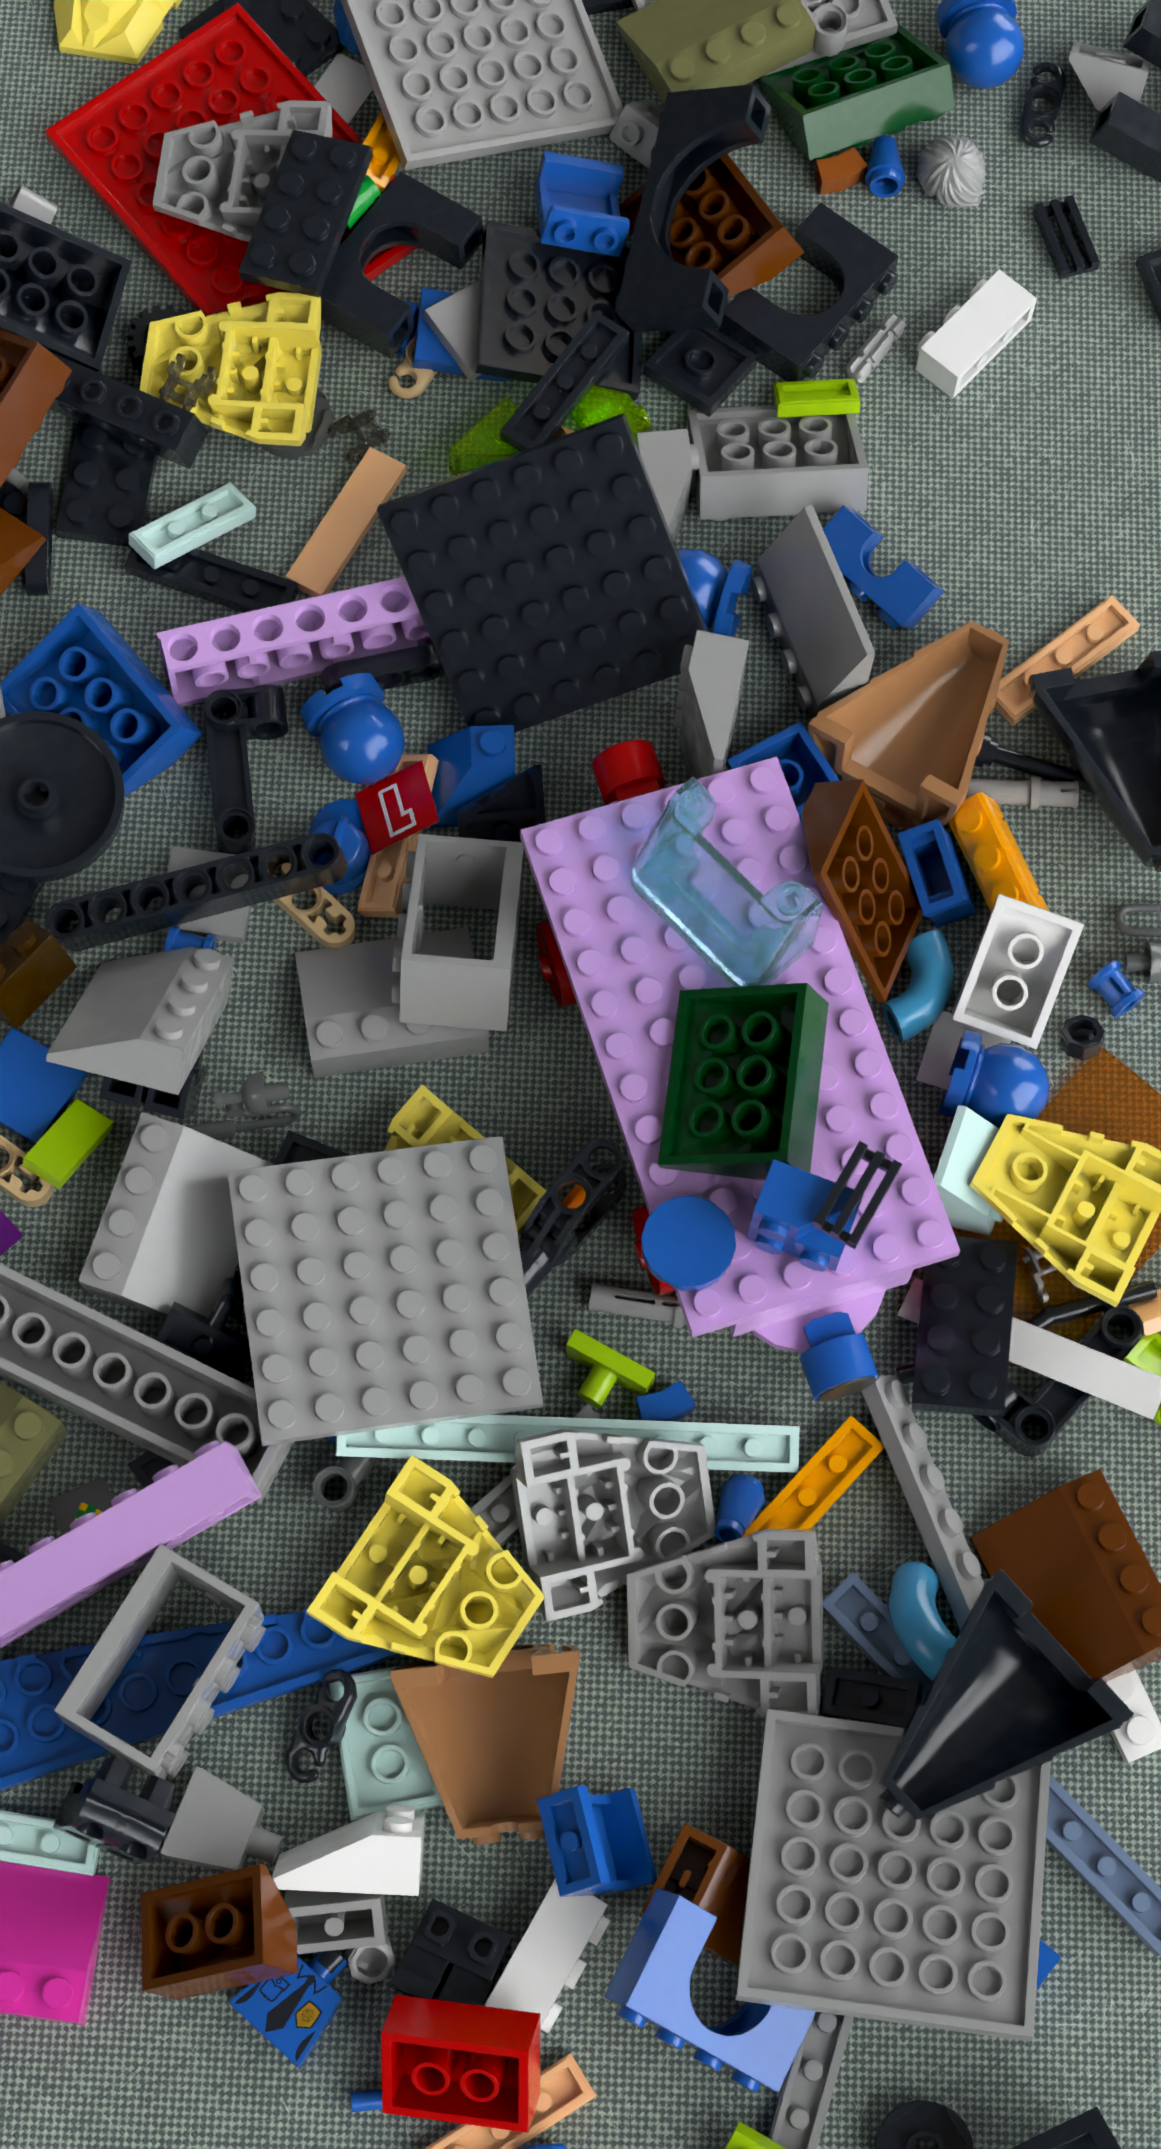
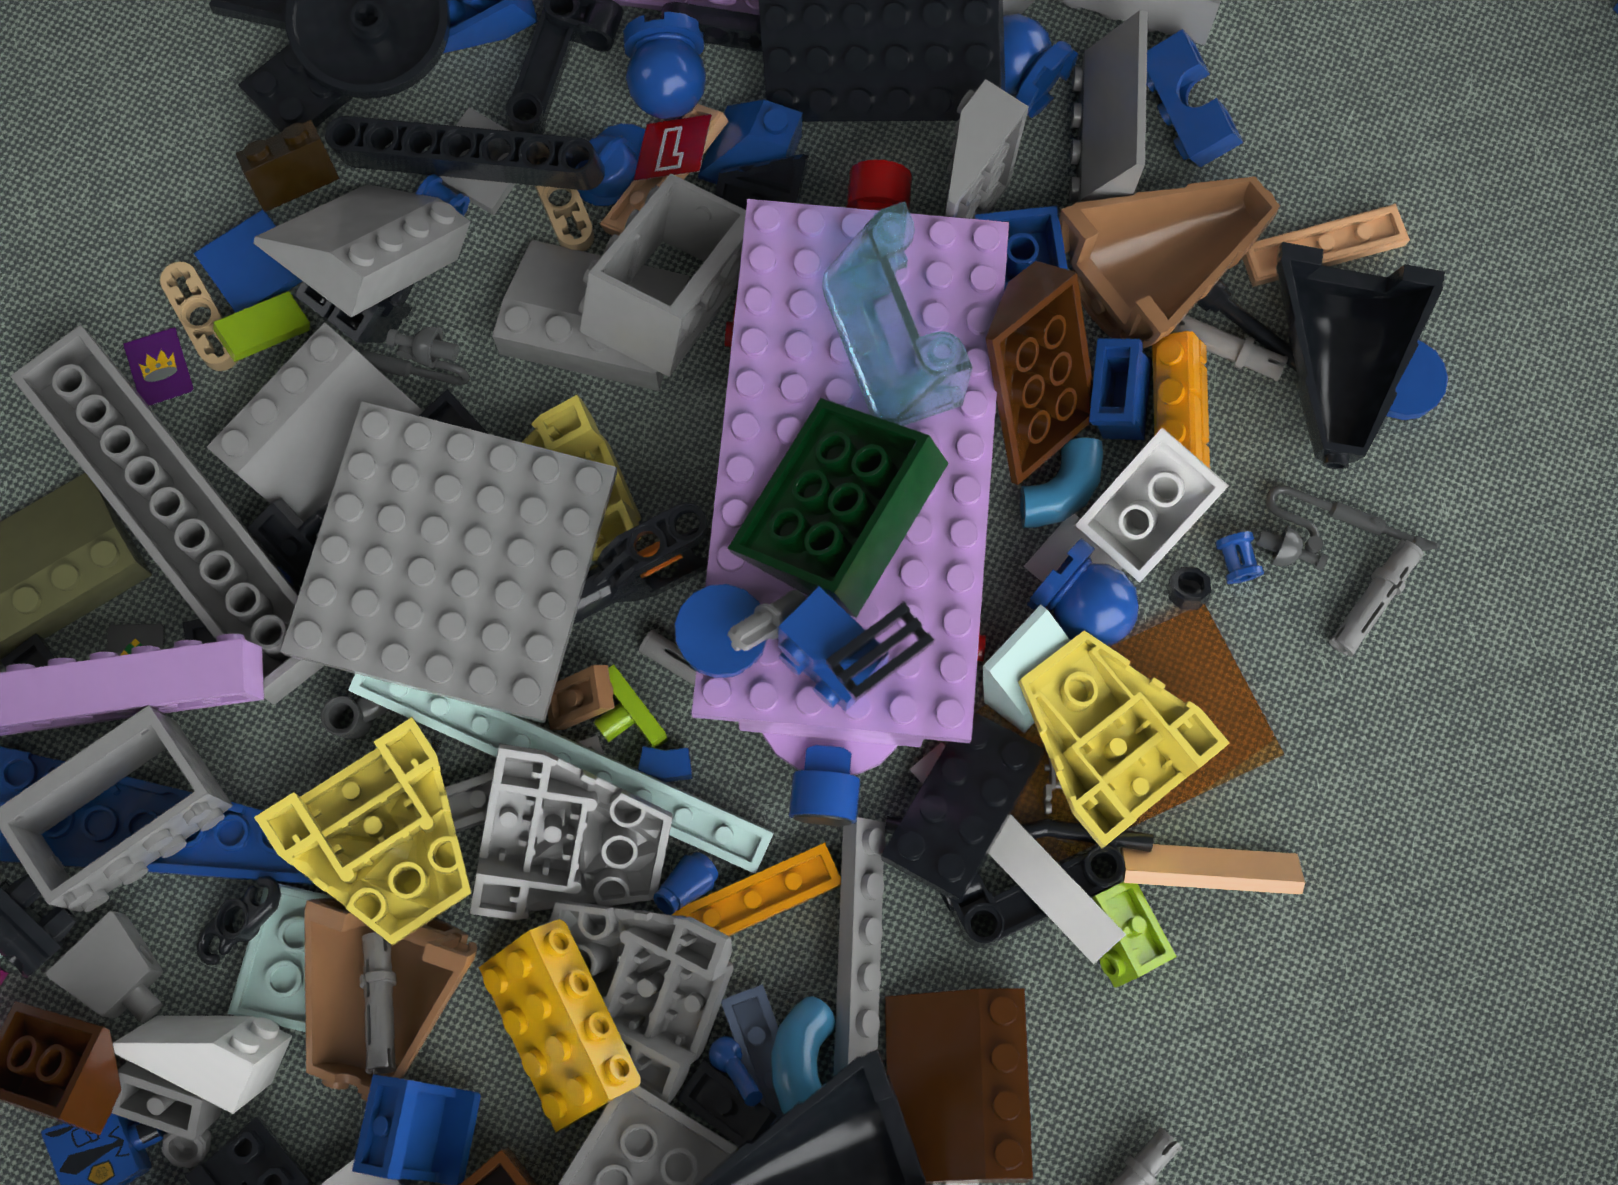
camera: 25 degrees right, 5 degrees up
(489, 1726) = (379, 1011): none -> light grey pin
(563, 1371) = (580, 697): none -> medium nougat plate
(680, 1689) = (559, 1024): none -> yellow bracket
(732, 1213) = (764, 621): none -> light grey axle
(850, 1654) = (726, 1057): none -> blue bar

